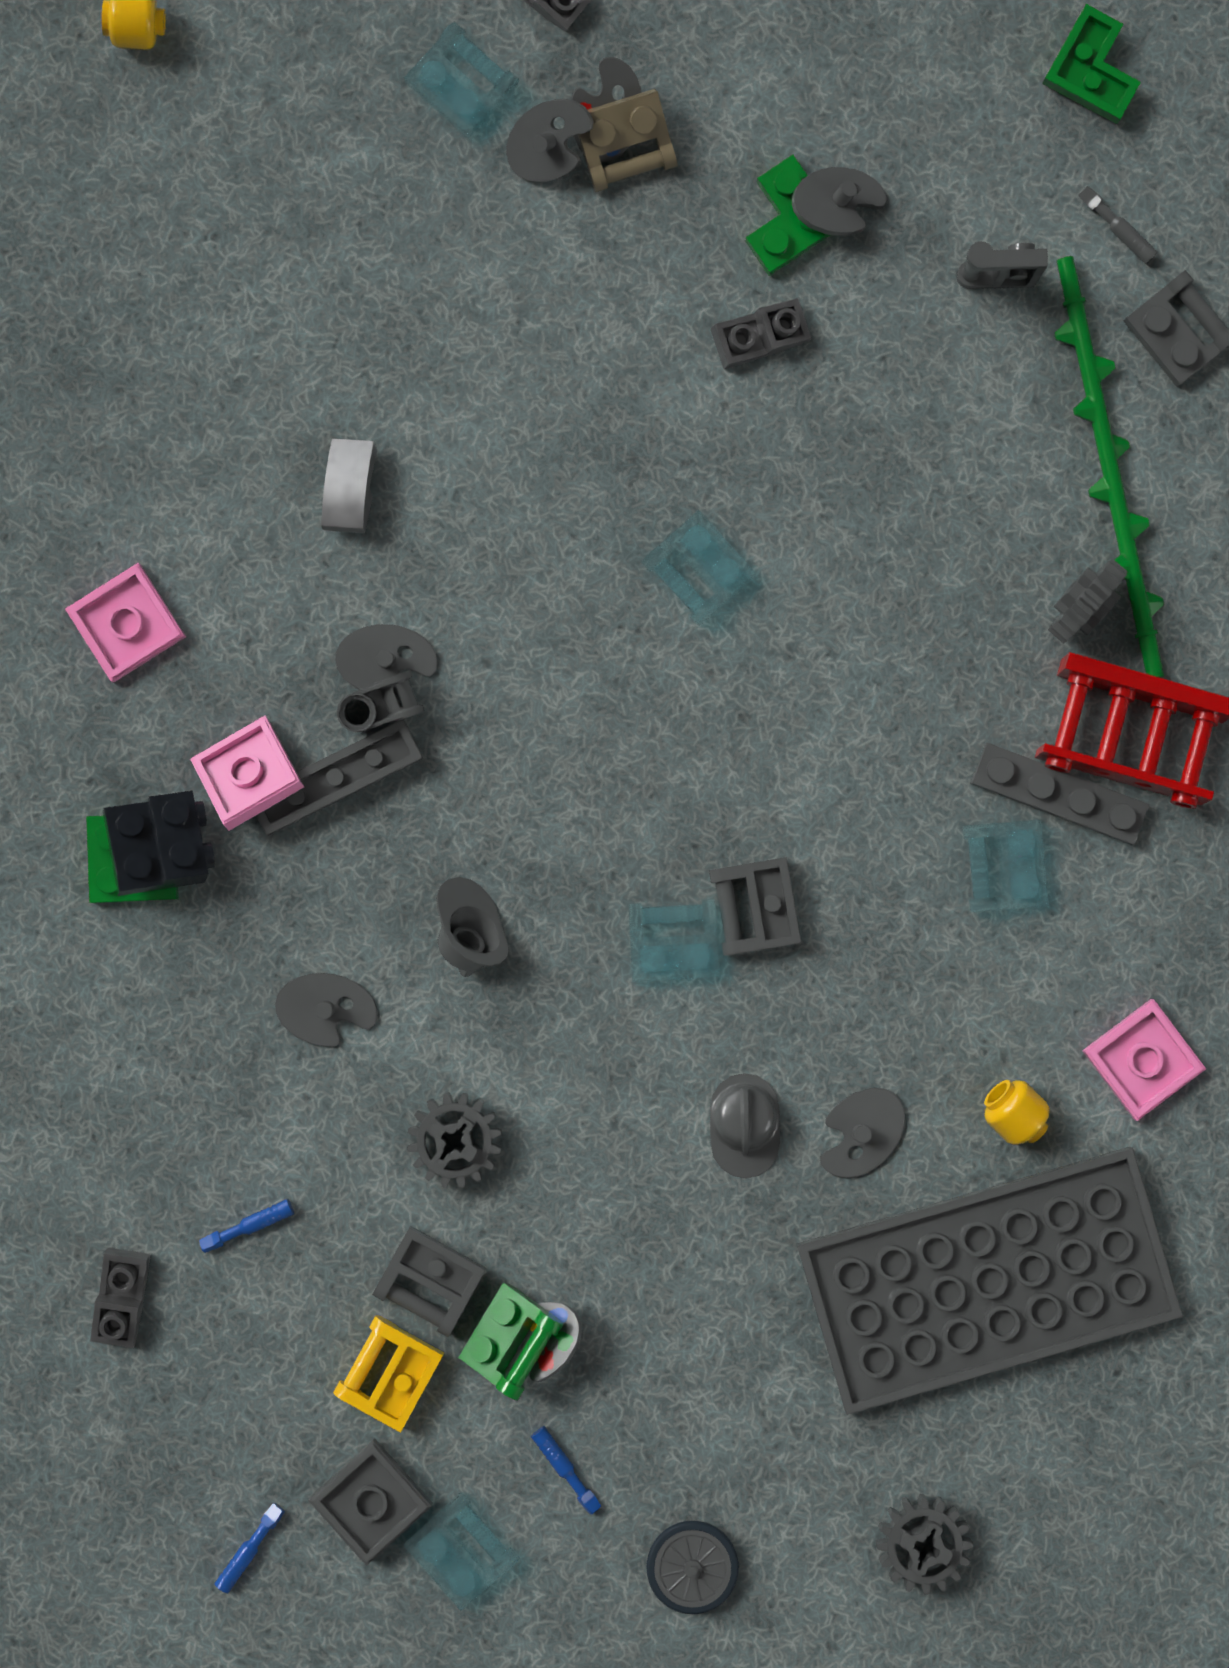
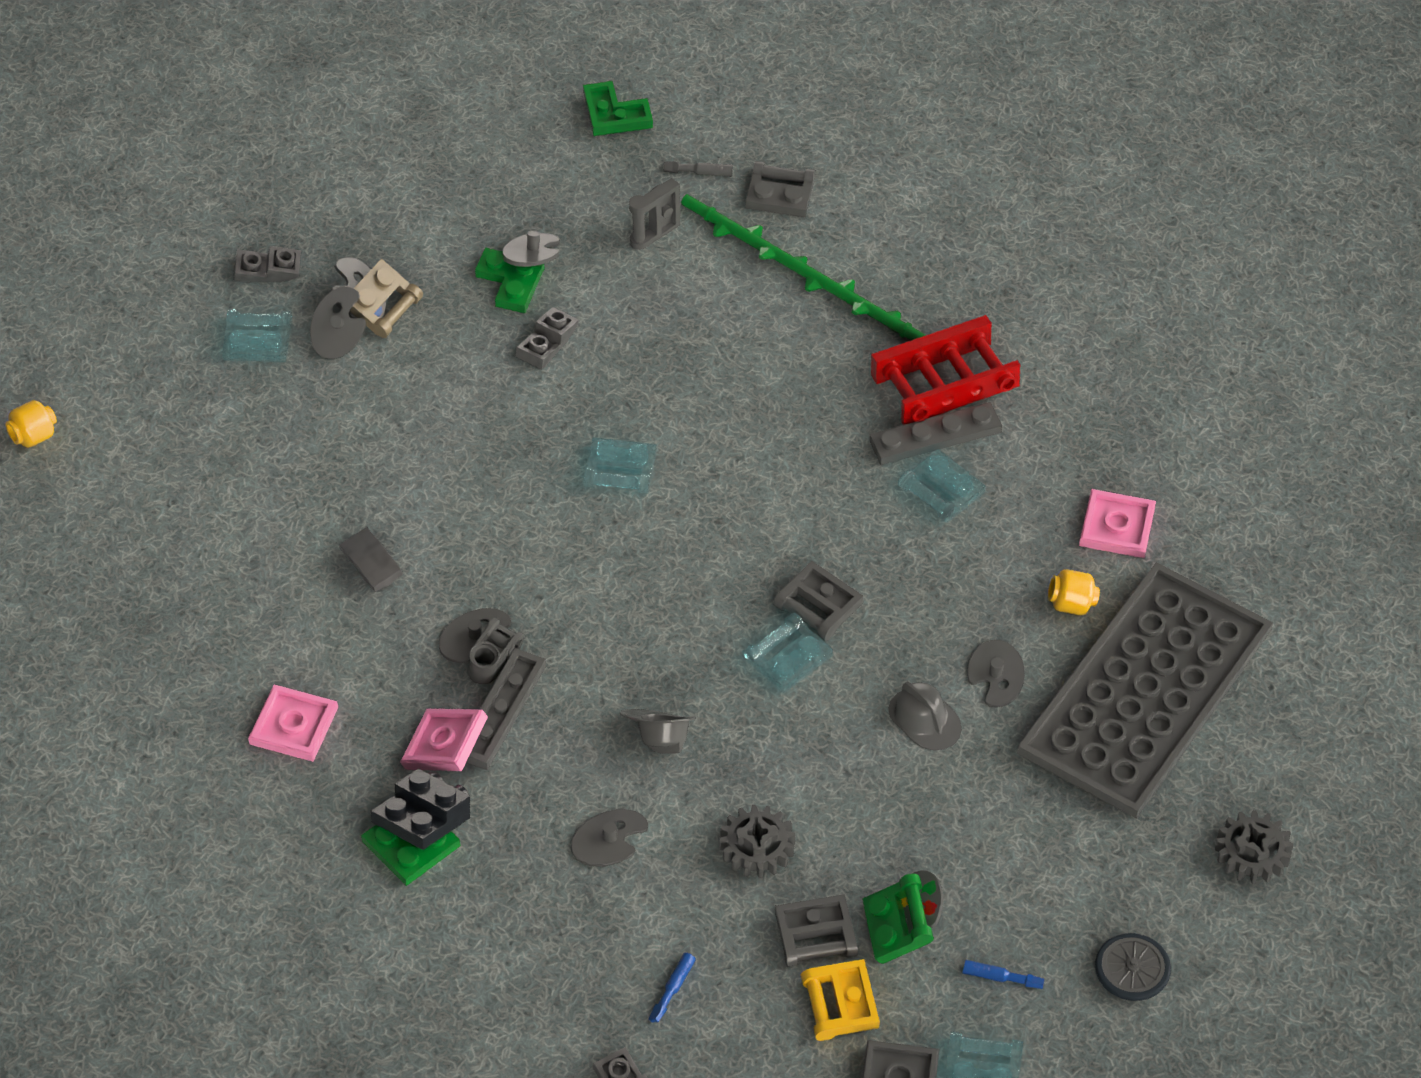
camera: 40 degrees left, 35 degrees down
(1087, 601) = (856, 324): dark grey gear -> none

